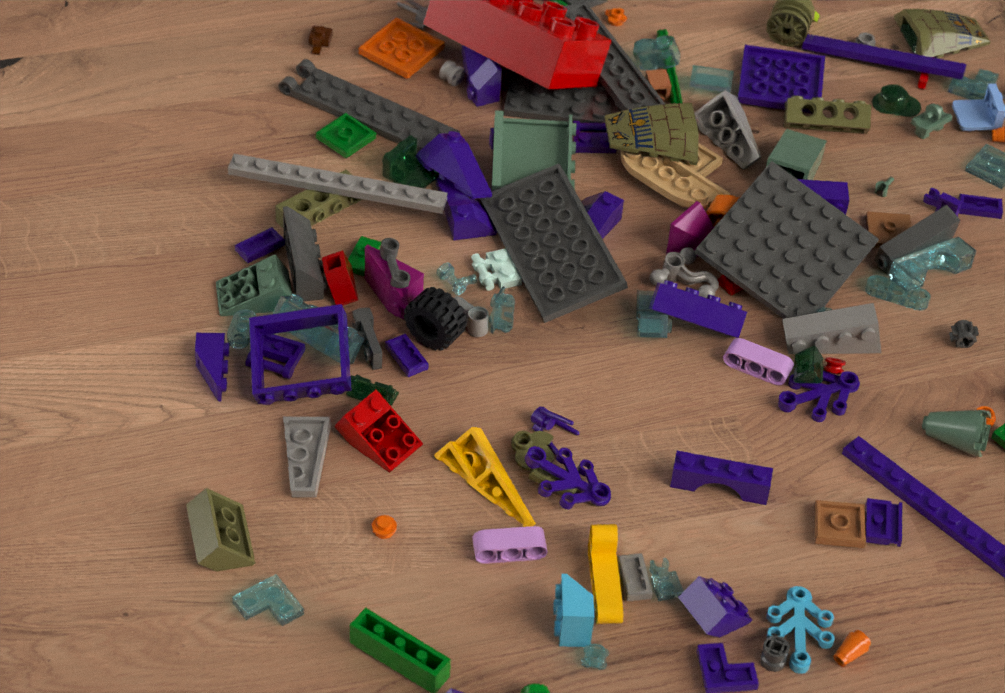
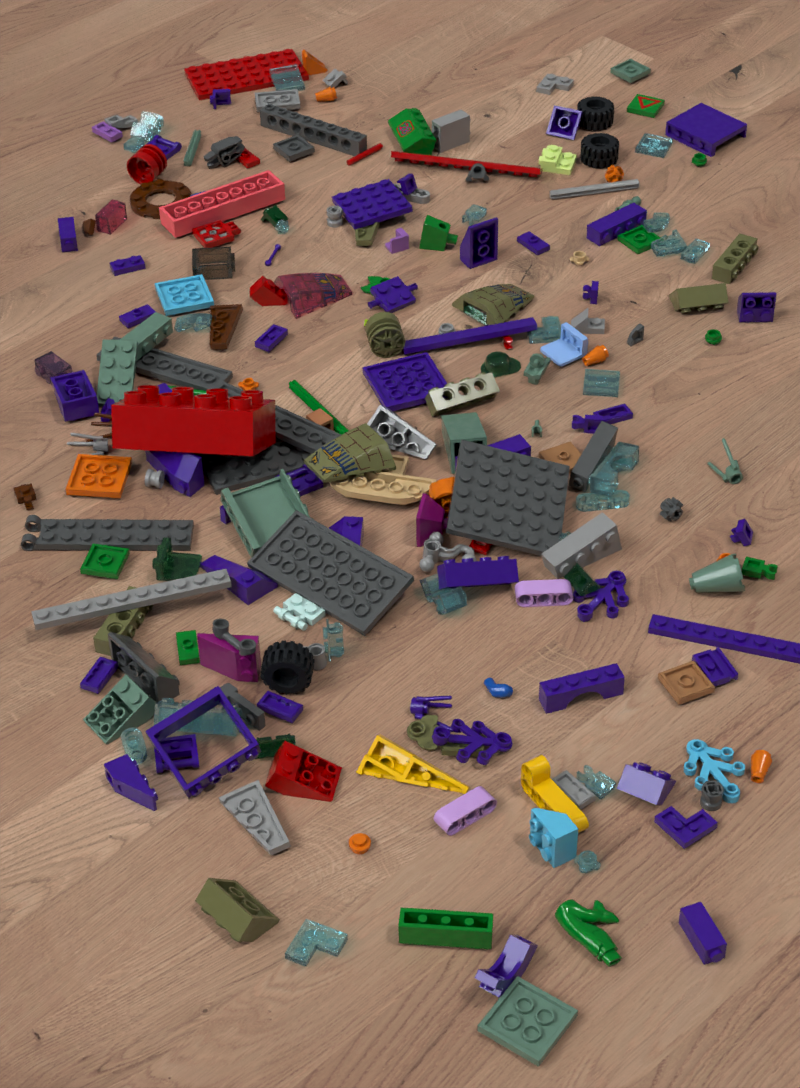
camera: 25 degrees left, 5 degrees down
(340, 278) = (186, 671): red slope -> none
(446, 272) = (264, 630): clear light blue piece -> none
(454, 161) = (208, 541): dark purple wedge -> none
(636, 439) = (498, 690): none -> blue arm
(656, 53) = (305, 398): clear light blue brick -> none
(711, 79) = (357, 403): clear light blue brick -> none
(834, 365) = (599, 571): red bush -> none

